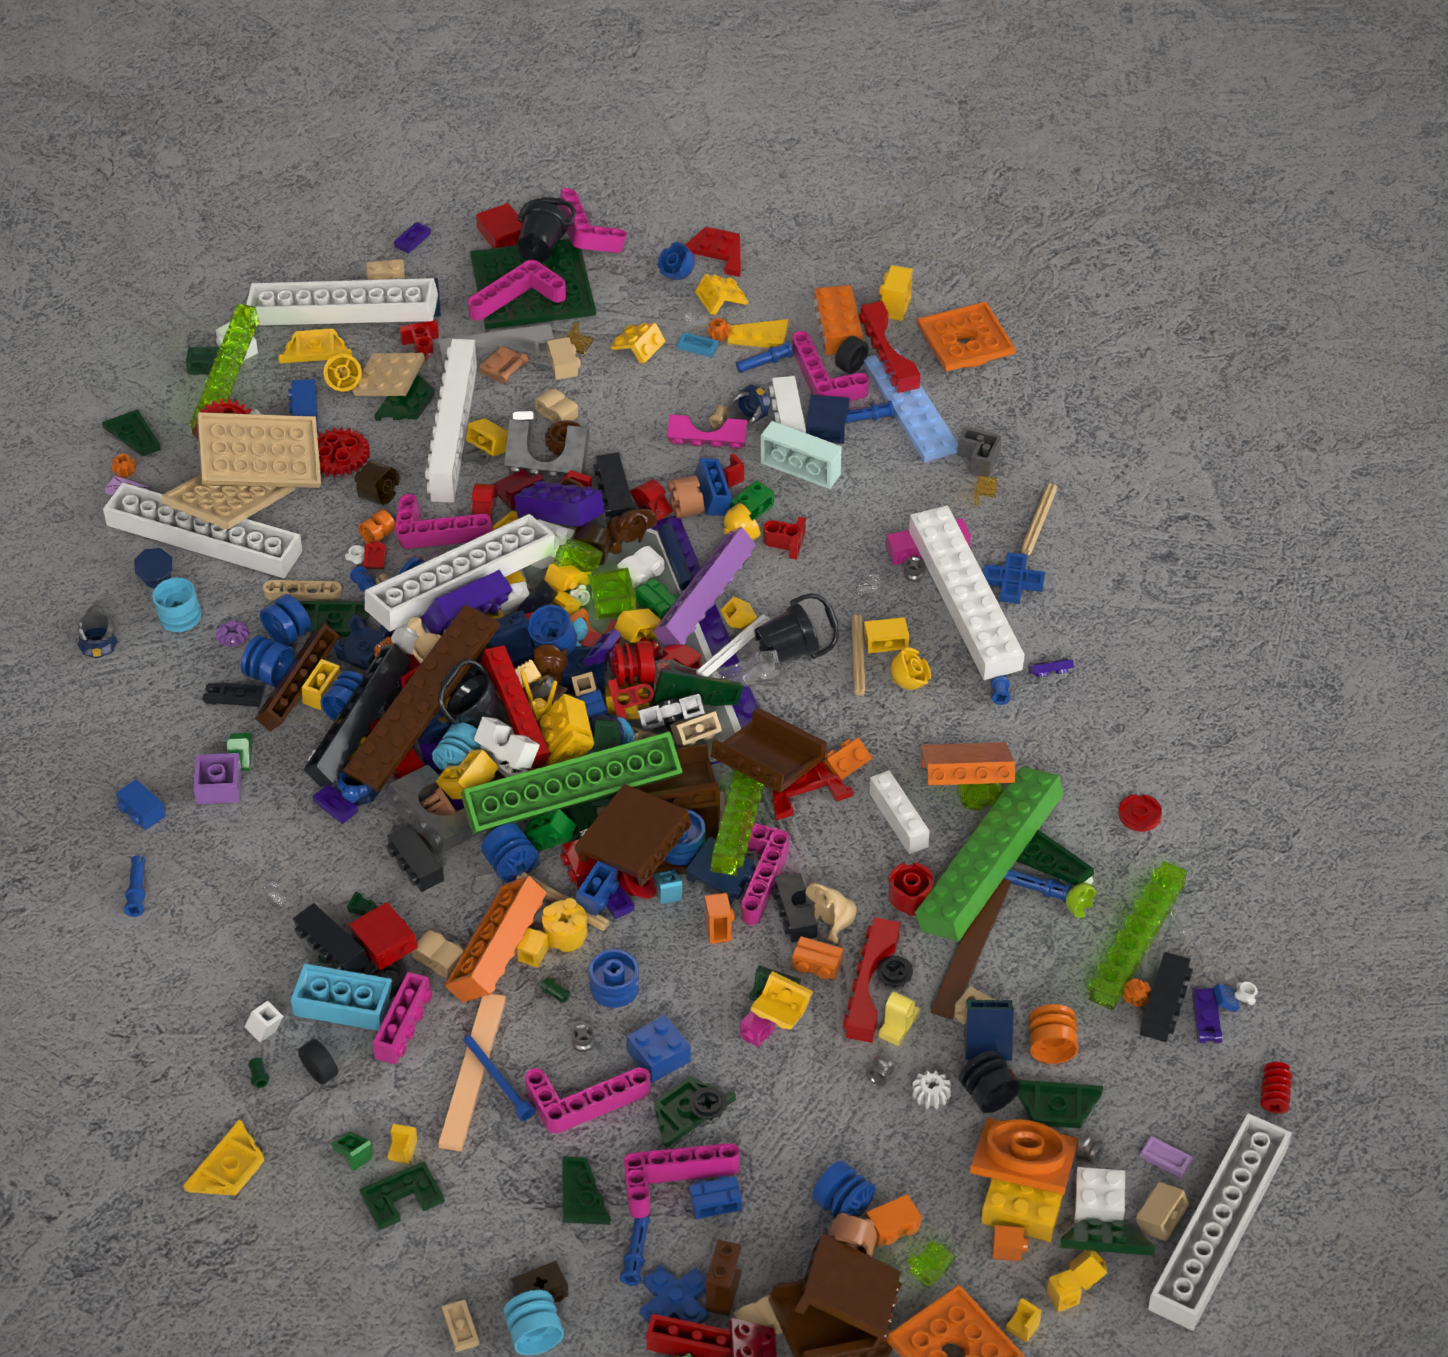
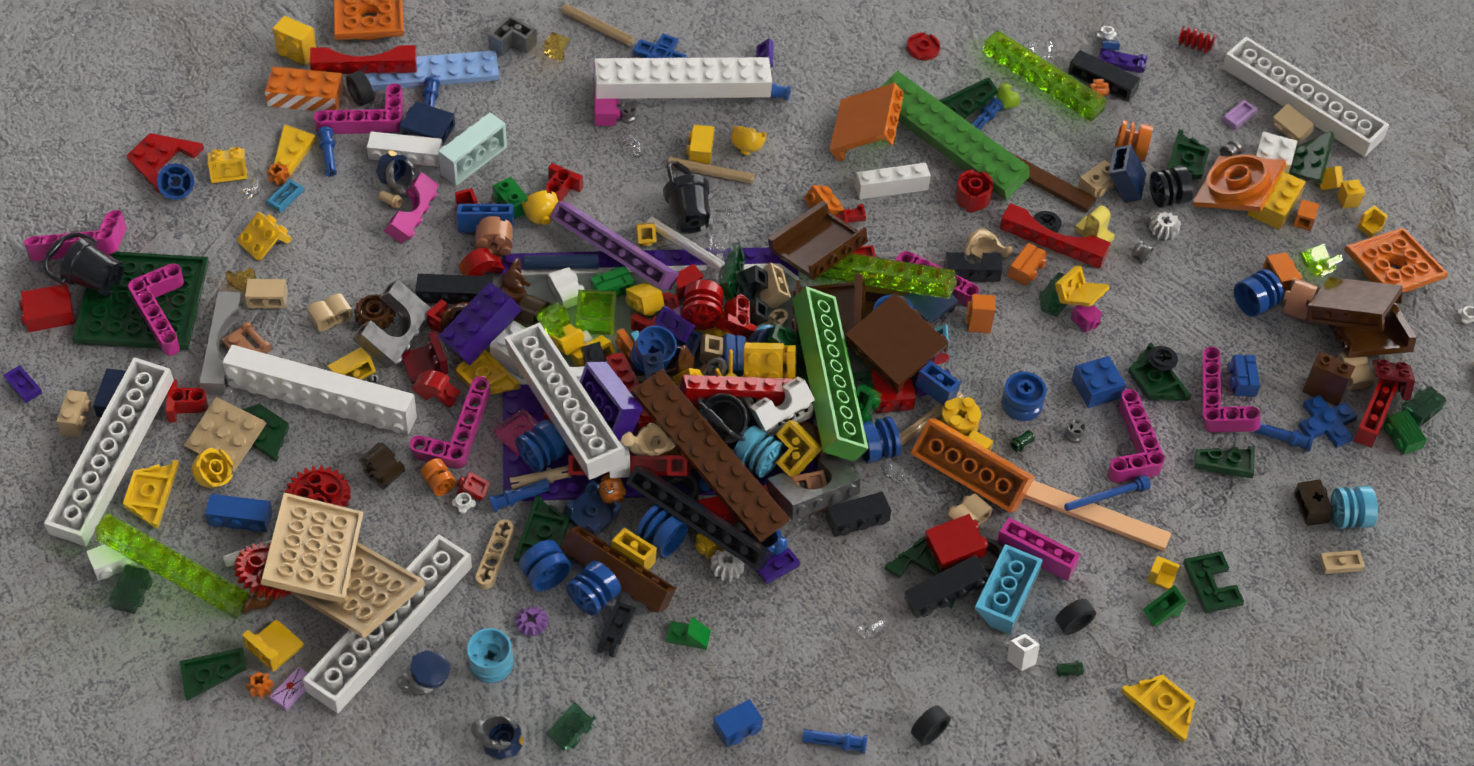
camera: 80 degrees left, 5 degrees up
(116, 682) = (570, 727): none -> clear green bracket
(157, 953) = (930, 725): none -> black tyre
(163, 463) = (273, 645): none -> yellow bracket
(217, 778) = (728, 651): medium lavender brick -> none
(520, 415) = (341, 333): white tile -> none

